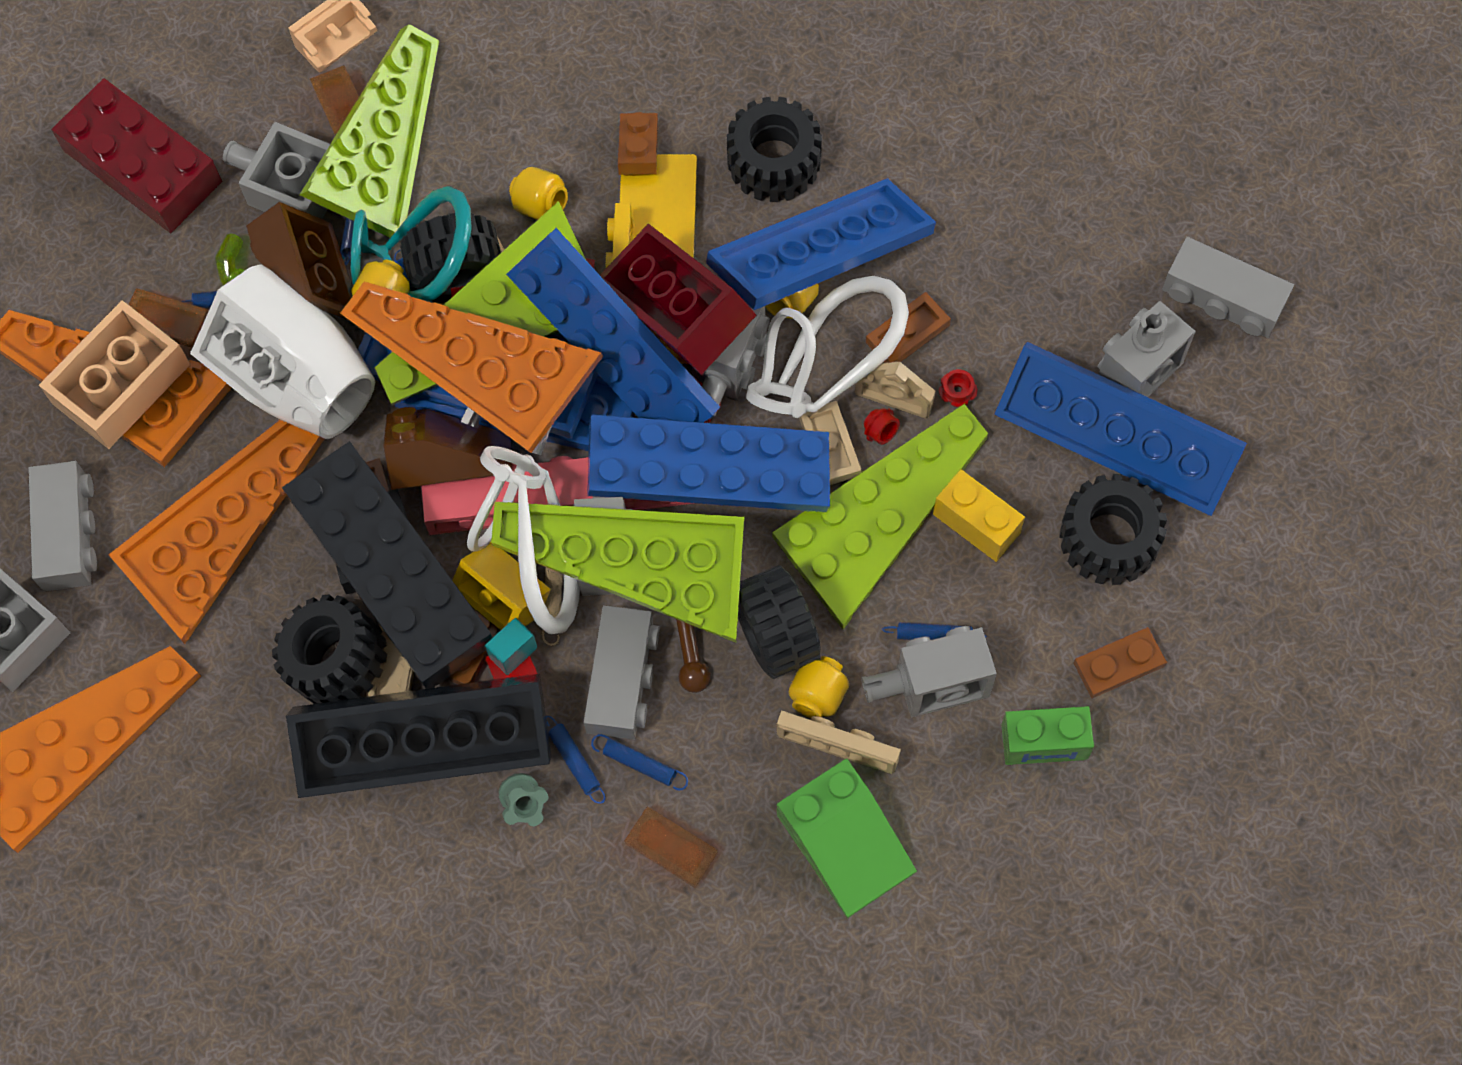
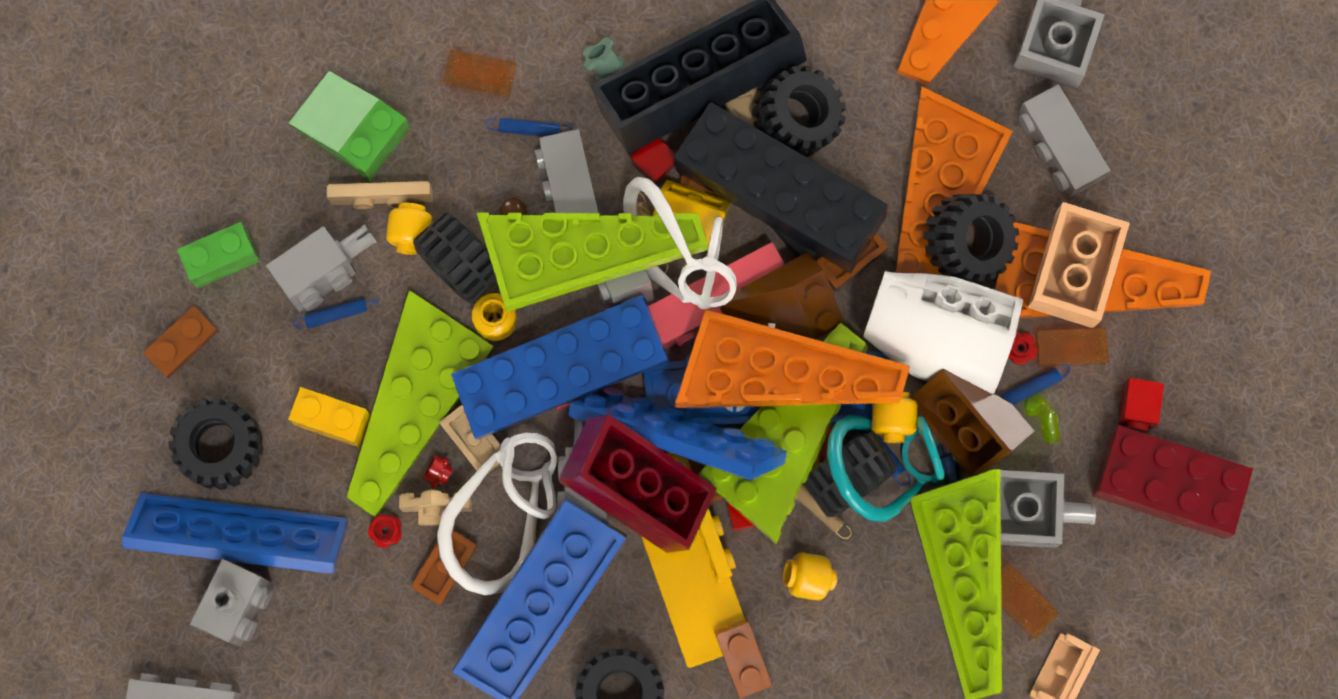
camera: 155 degrees right, 10 degrees up
(127, 238) = (1141, 404): none -> red brick
(210, 446) = (993, 243): none -> black tyre
(511, 646) = (658, 163): teal piece -> none
(574, 759) = (579, 111): blue piece -> none
(761, 543) = (496, 329): none -> yellow head

